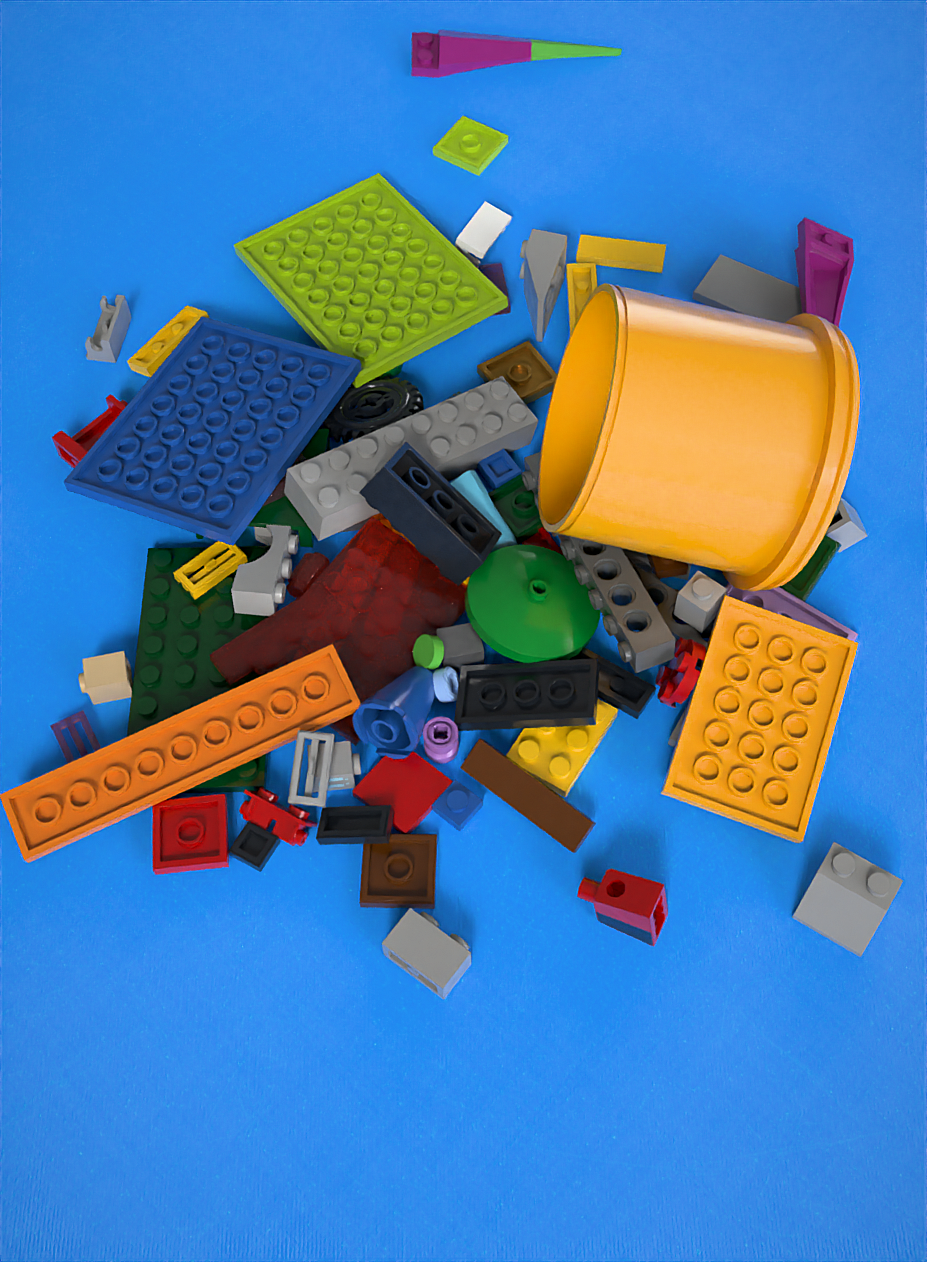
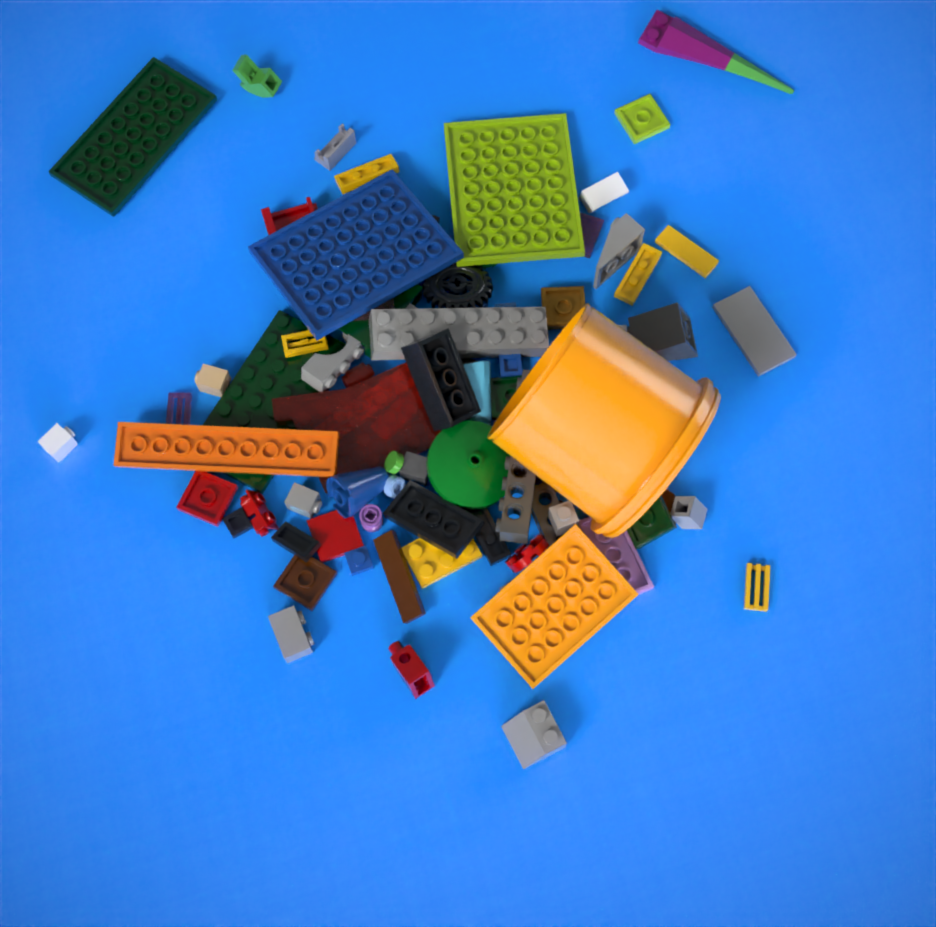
camera: 30 degrees right, 10 degrees up
(307, 799) = (298, 482): light grey tile -> none
(823, 269) = (801, 337): magenta plate -> none

